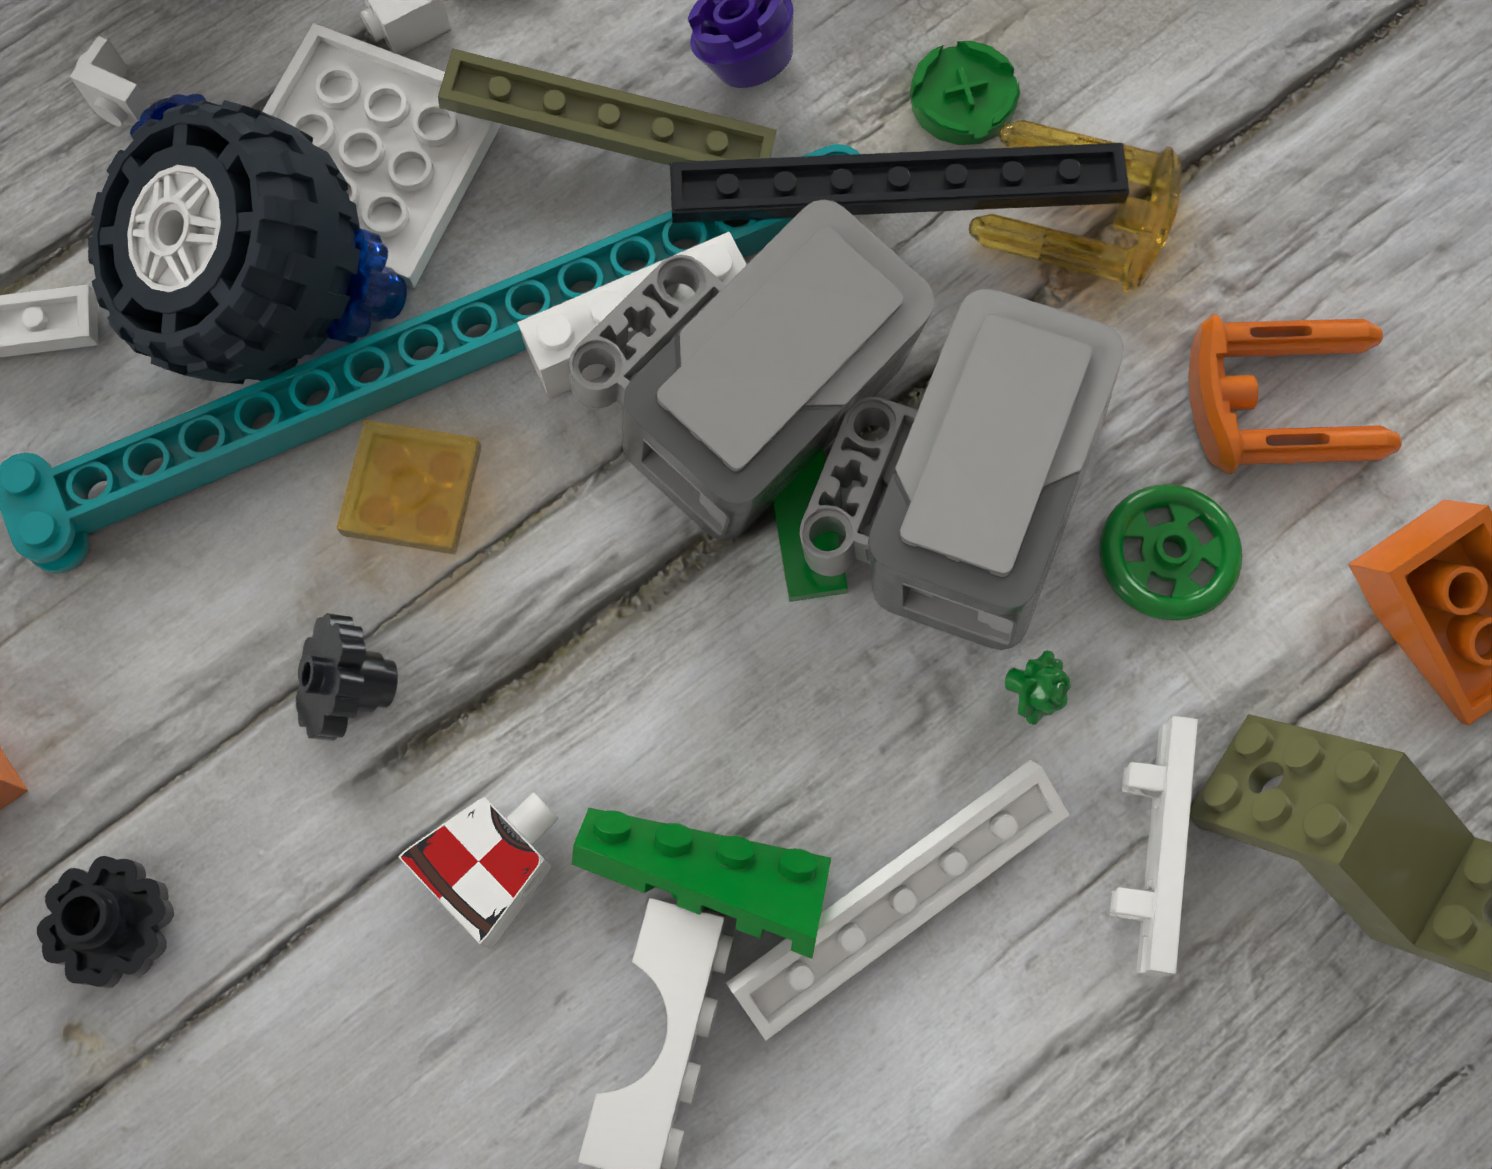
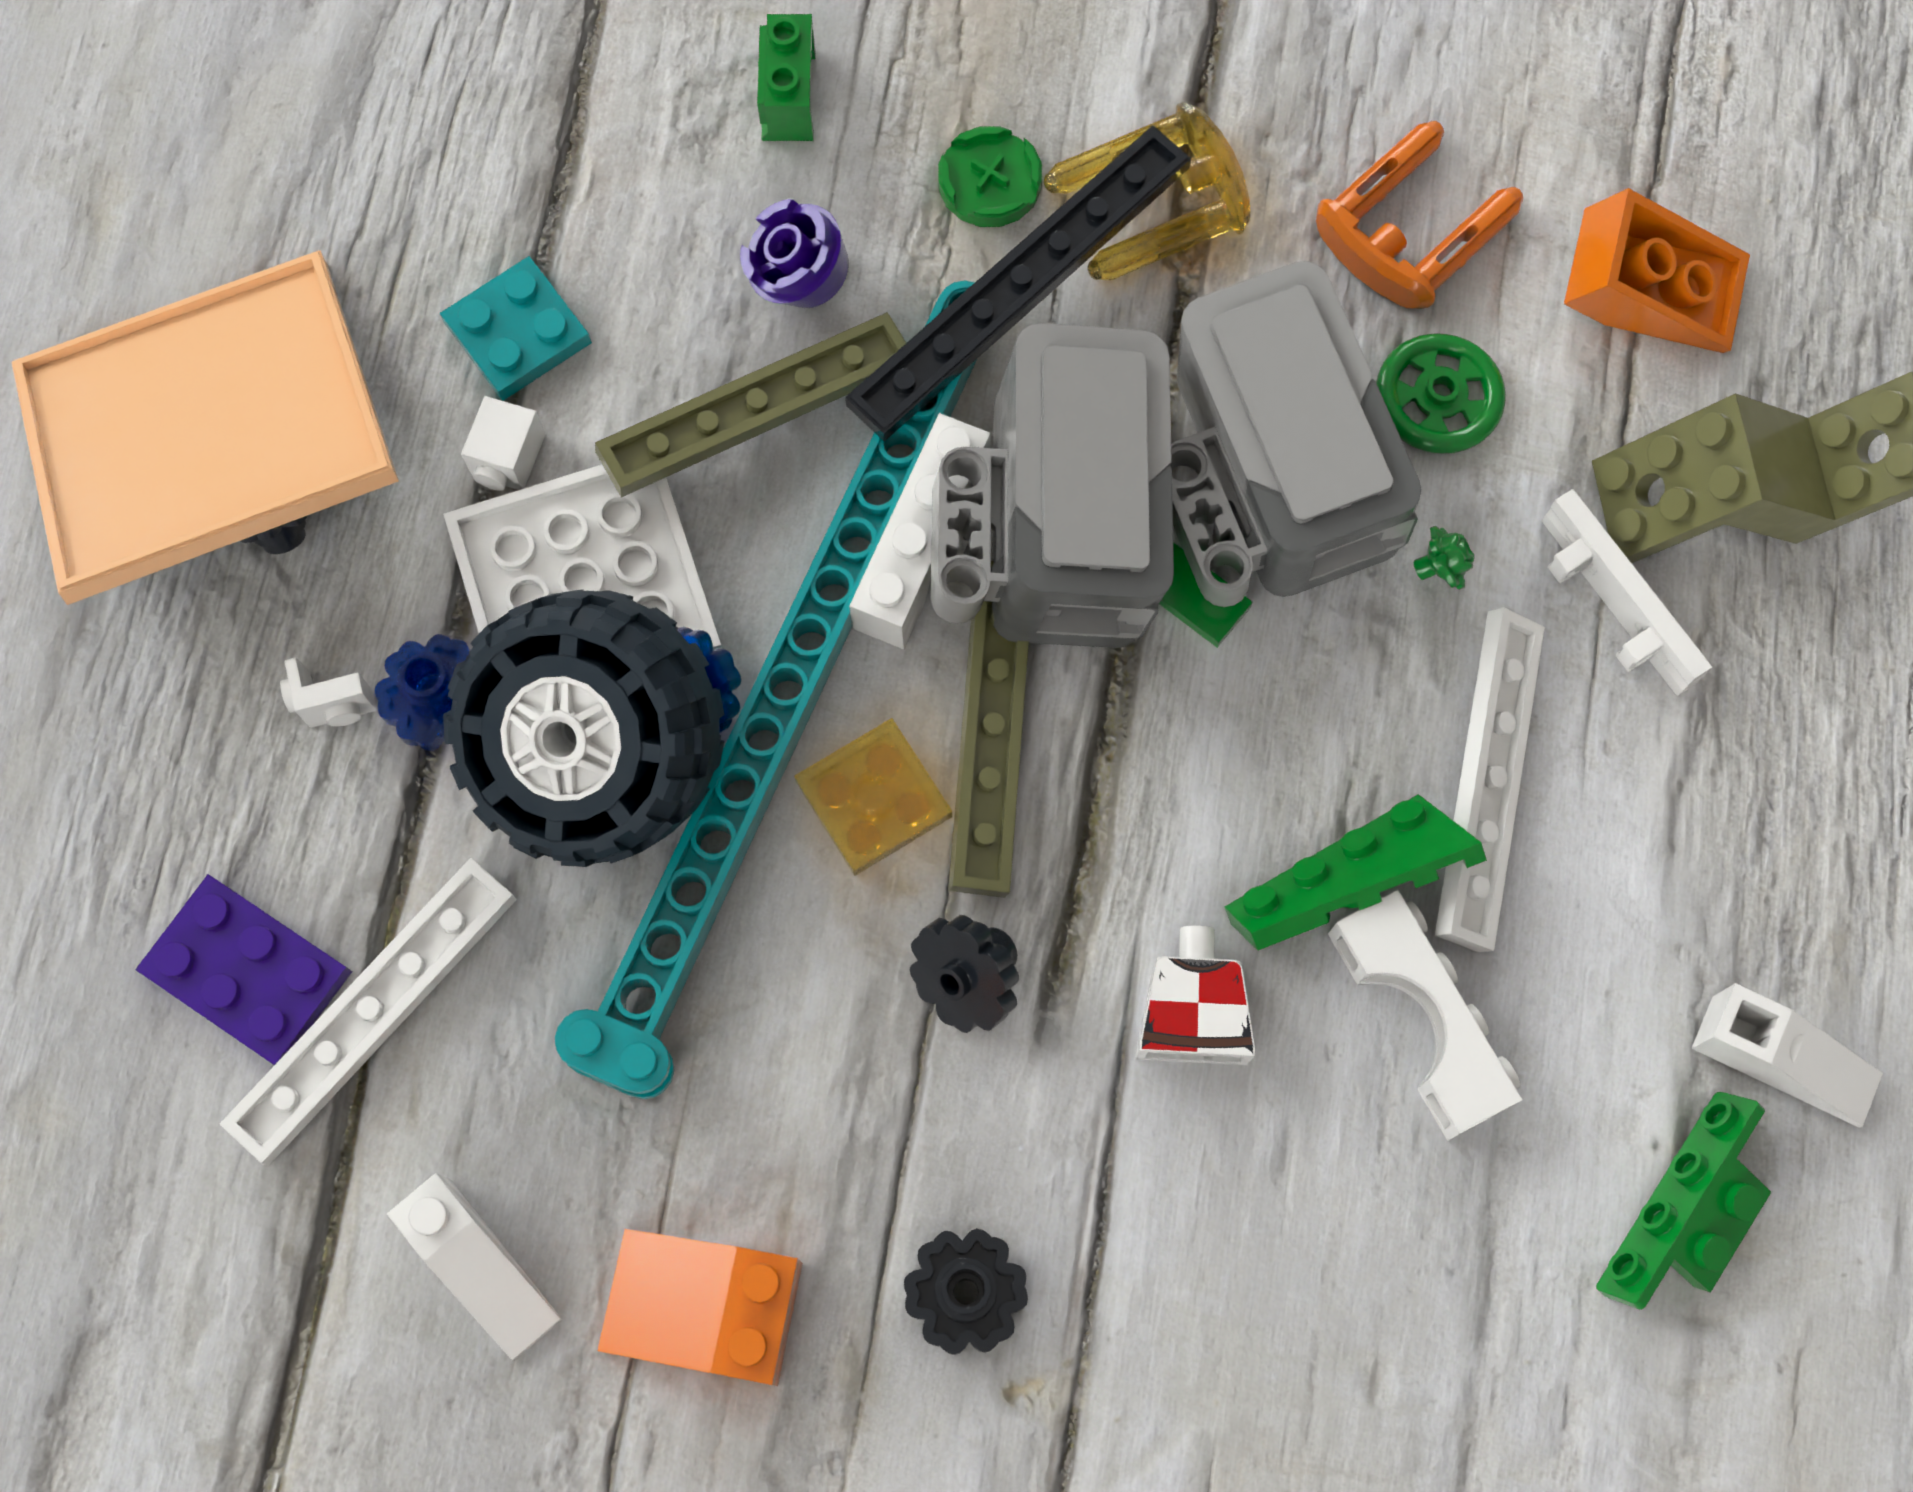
camera: 45 degrees left, 0 degrees up
(519, 534) = (988, 760): none -> olive plate

